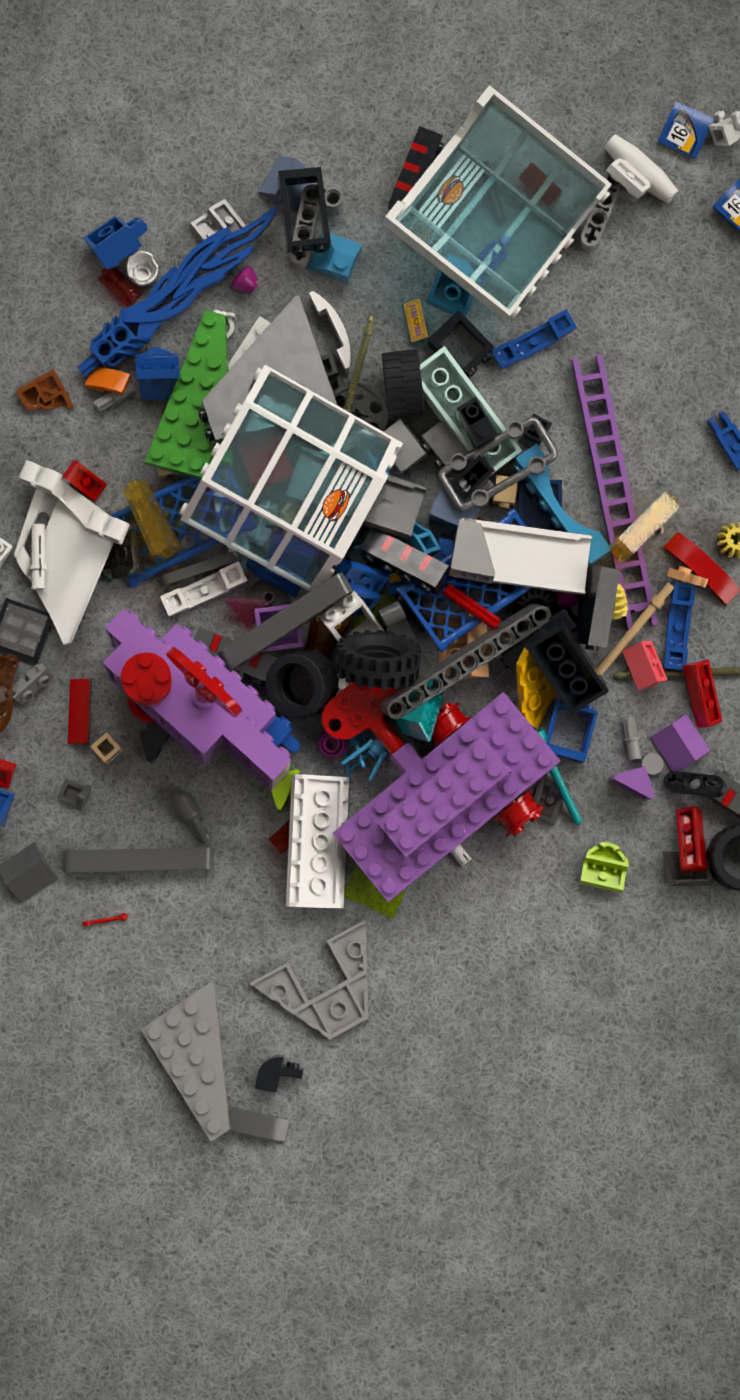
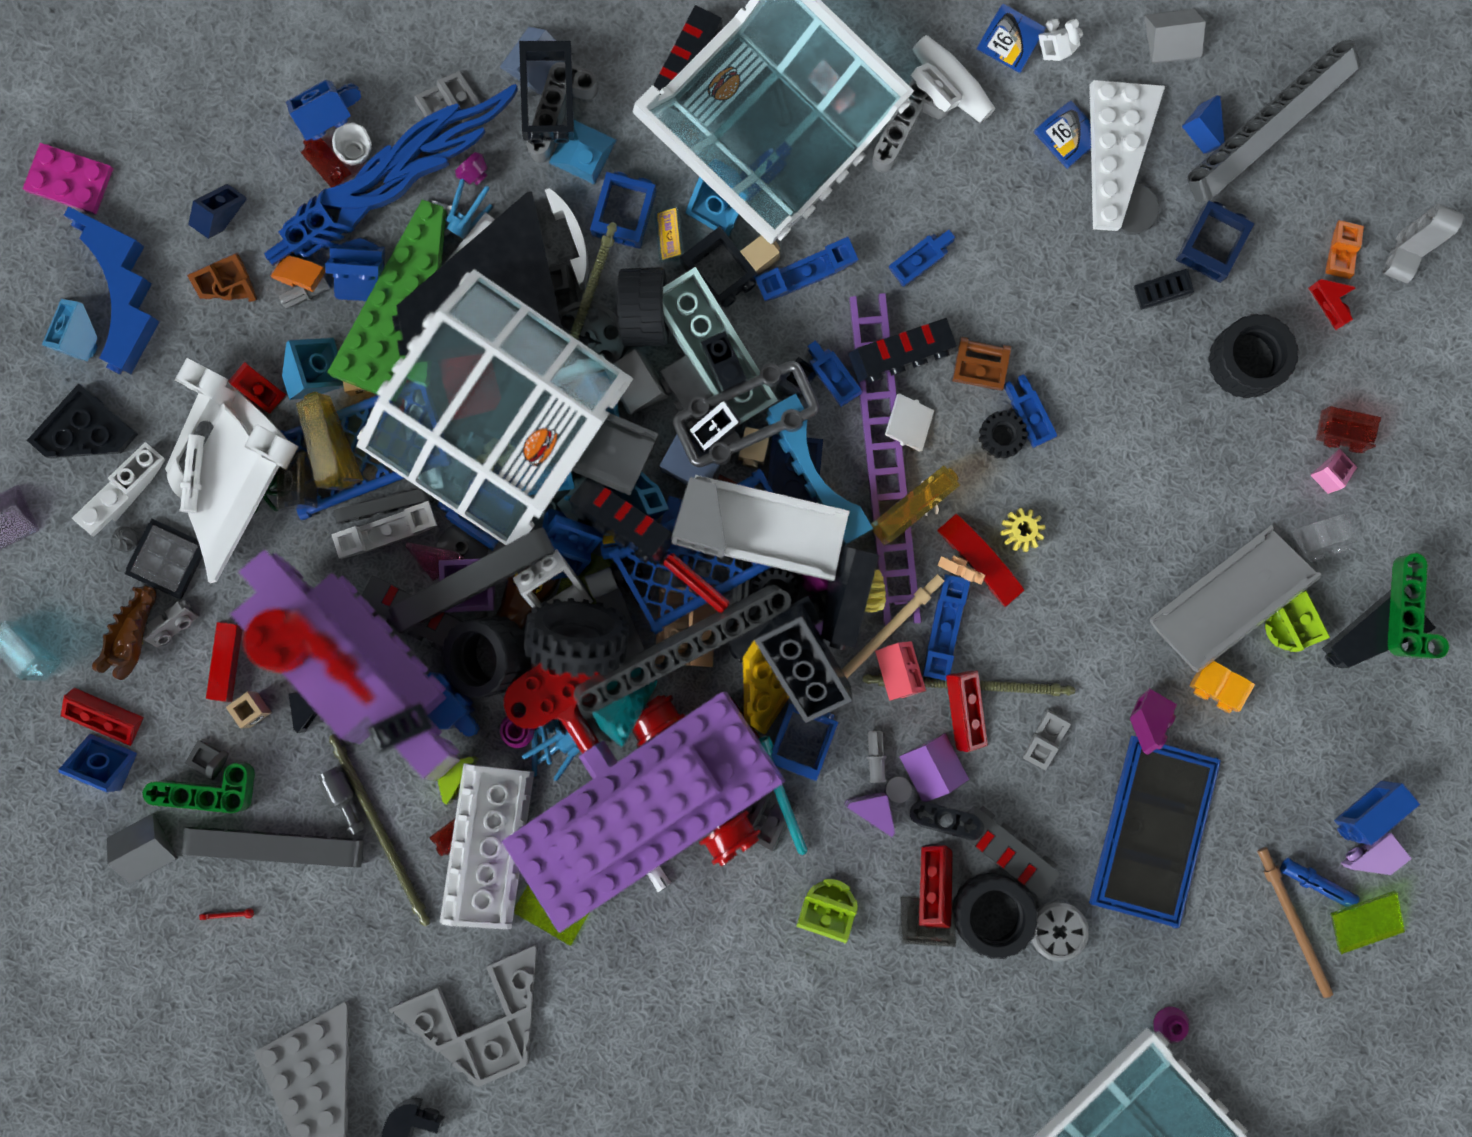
camera: 10 degrees right, 0 degrees up
(32, 335) = (215, 210): none -> dark blue slope
(72, 819) = (198, 792): none -> green beam
(127, 459) = (307, 367): none -> dark azure slope
(186, 778) = (417, 906): none -> olive hose
(240, 327) = (461, 224): none -> dark azure plant
(247, 733) = (396, 718): none -> black slope
(380, 325) = (623, 235): none -> blue window
(495, 329) = (761, 254): none -> tan brick
(565, 425) = (833, 374): none -> blue hinge
(621, 399) = (902, 350): none -> black brick
(628, 321) = (921, 257): none -> blue hinge
(632, 459) = (909, 422): none -> white piece
(685, 411) = (981, 371): none -> dark orange plate
(714, 450) = (1002, 419): none -> black tyre

